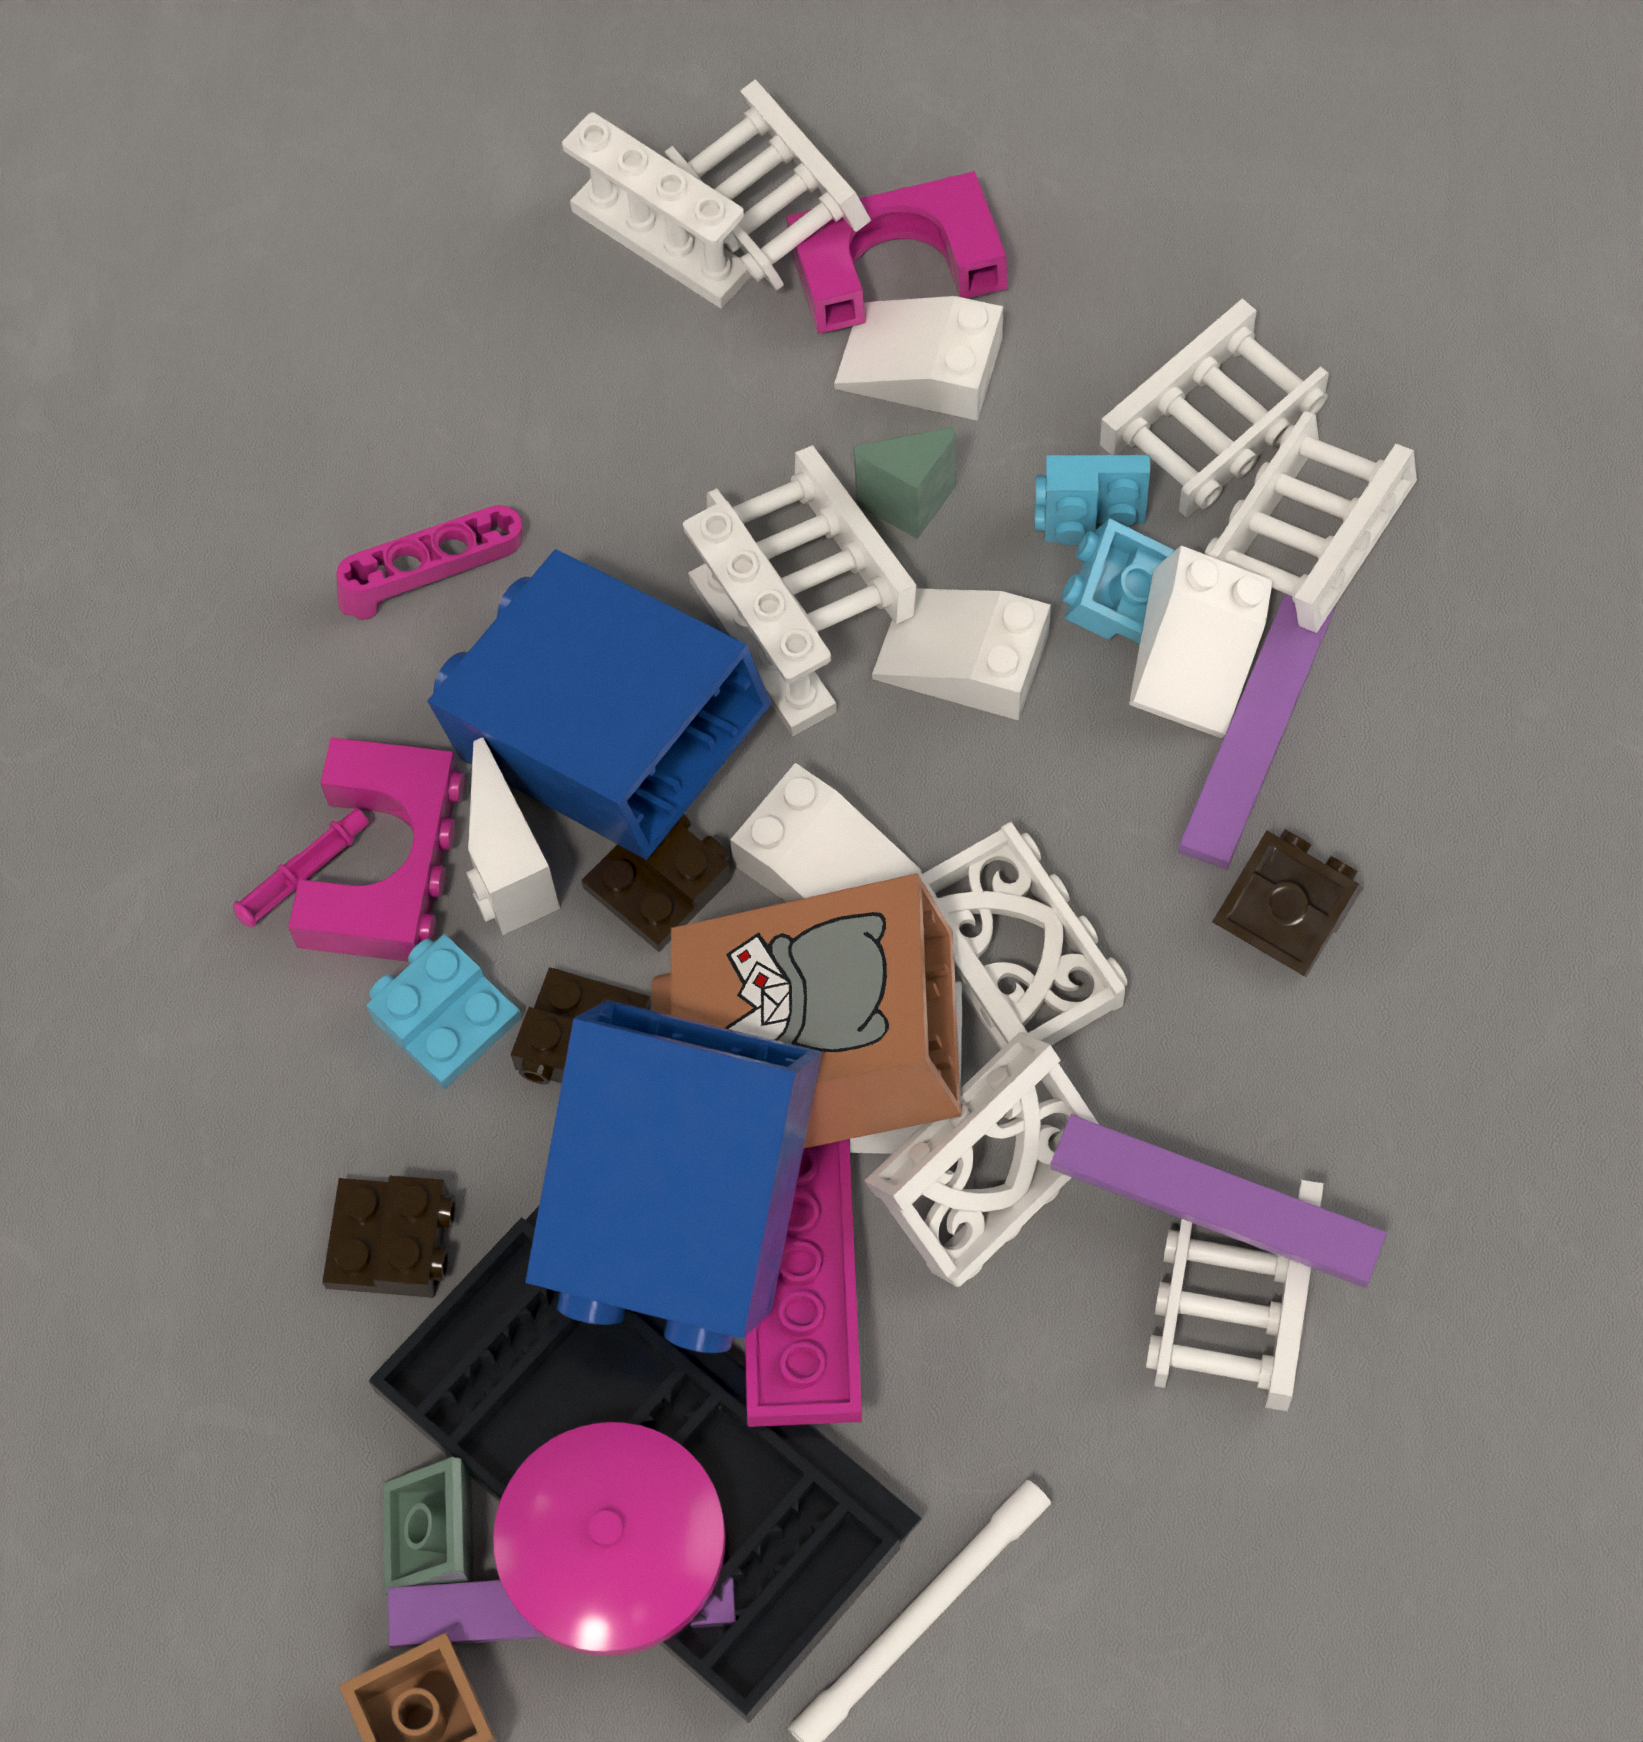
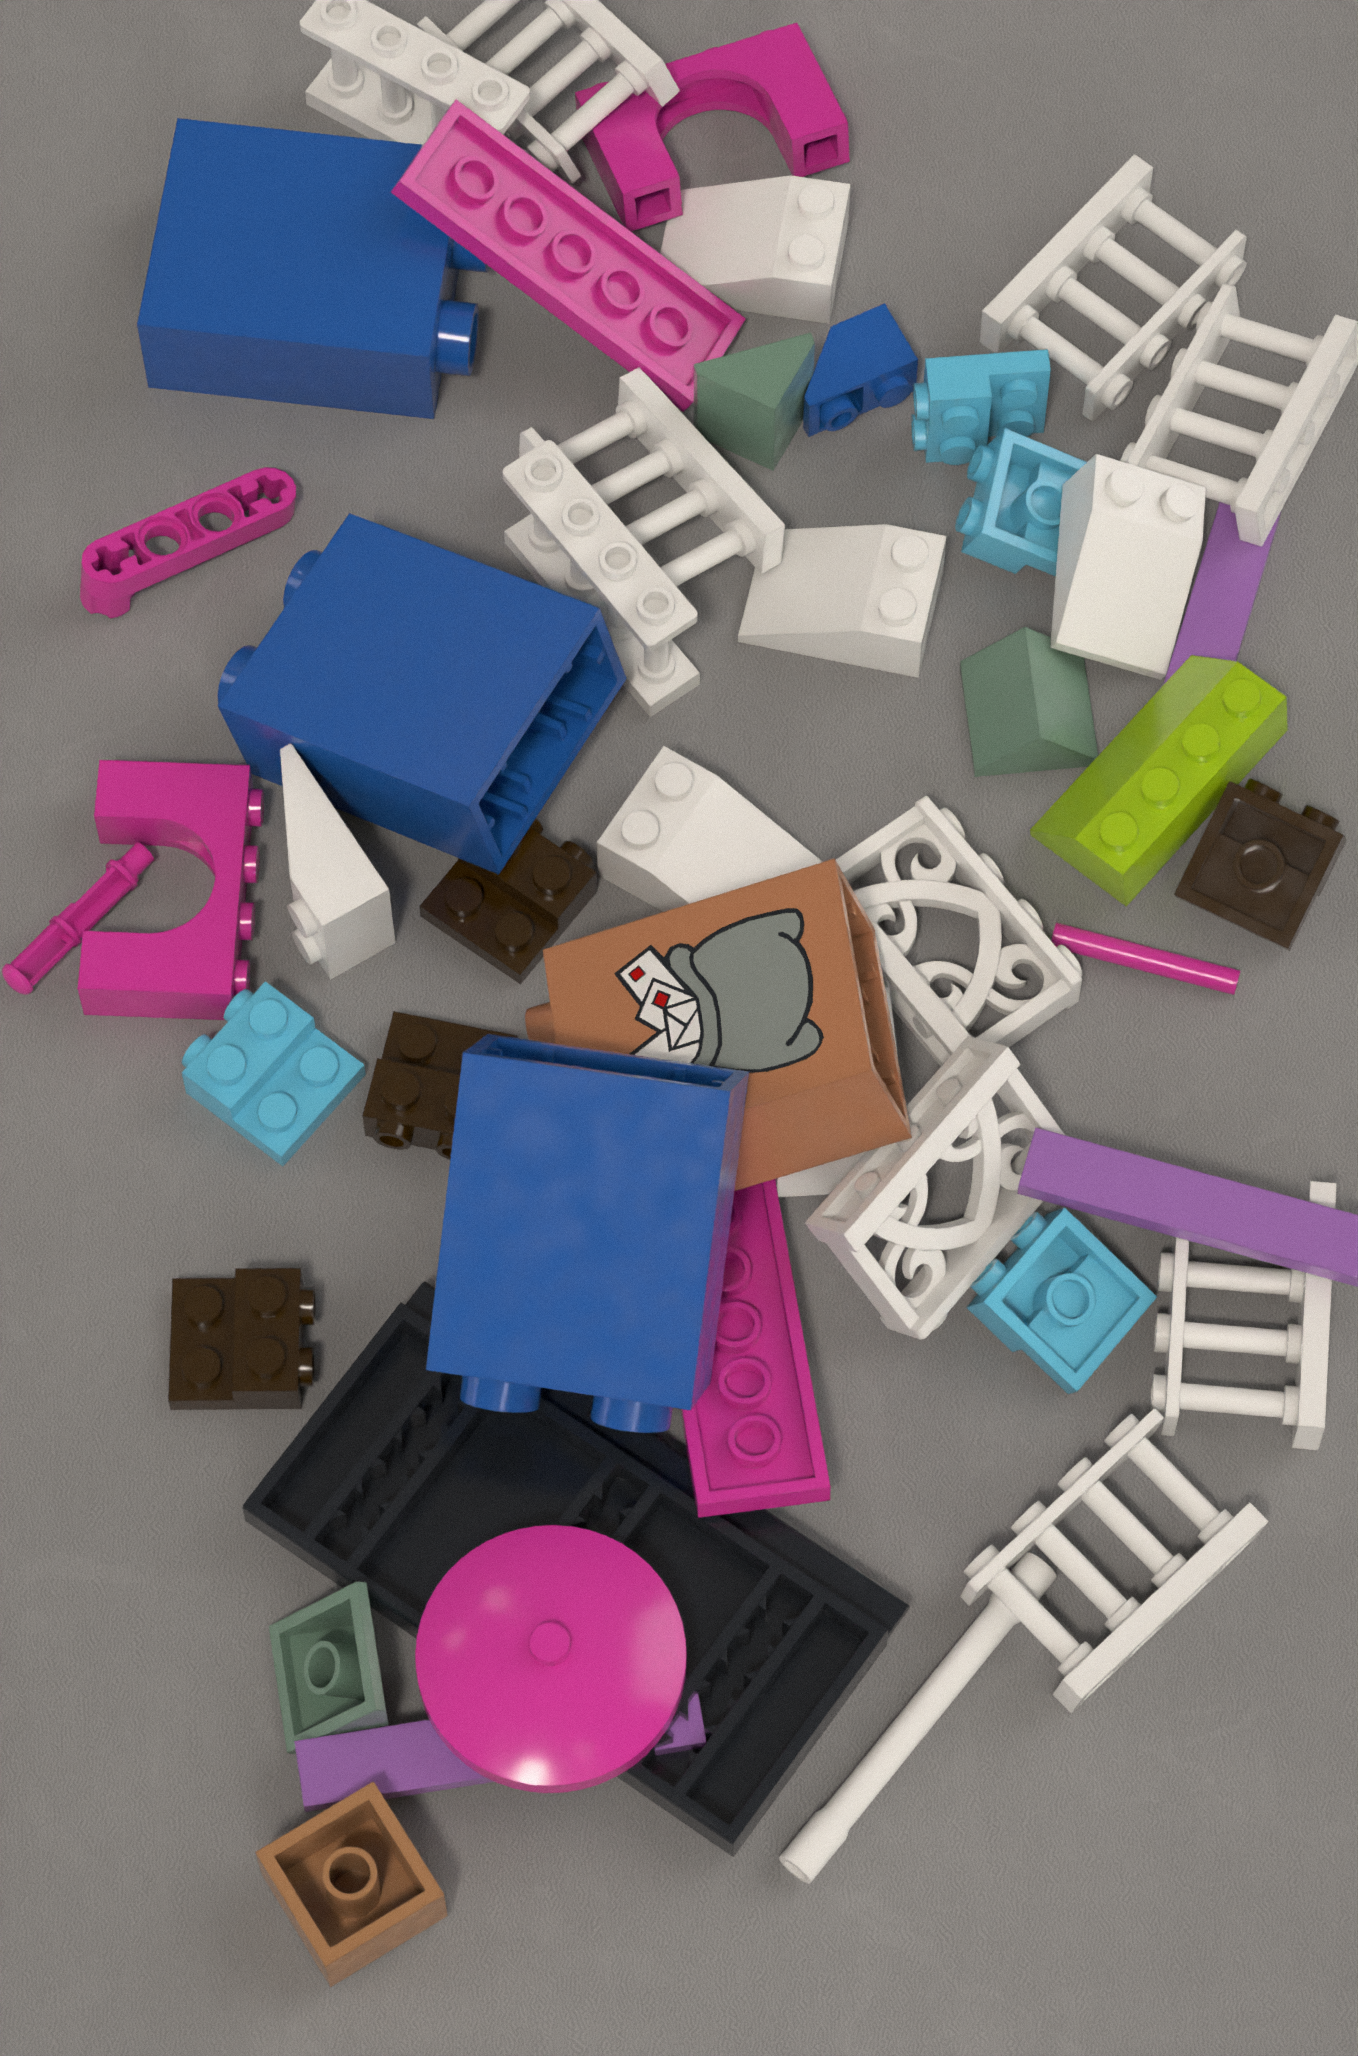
camera: 10 degrees left, 0 degrees up
(554, 345) = (301, 275): none -> blue brick
(760, 346) = (566, 253): none -> dark pink plate
(994, 461) = (859, 369): none -> blue slope
(1079, 1261) = (1060, 1298): none -> medium azure plate
(1106, 753) = (1027, 707): none -> sand green slope
(1150, 1512) = (1128, 1620): none -> white fence
(1183, 974) = (1146, 958): none -> dark pink bar
(1214, 819) = (1164, 774): none -> lime slope

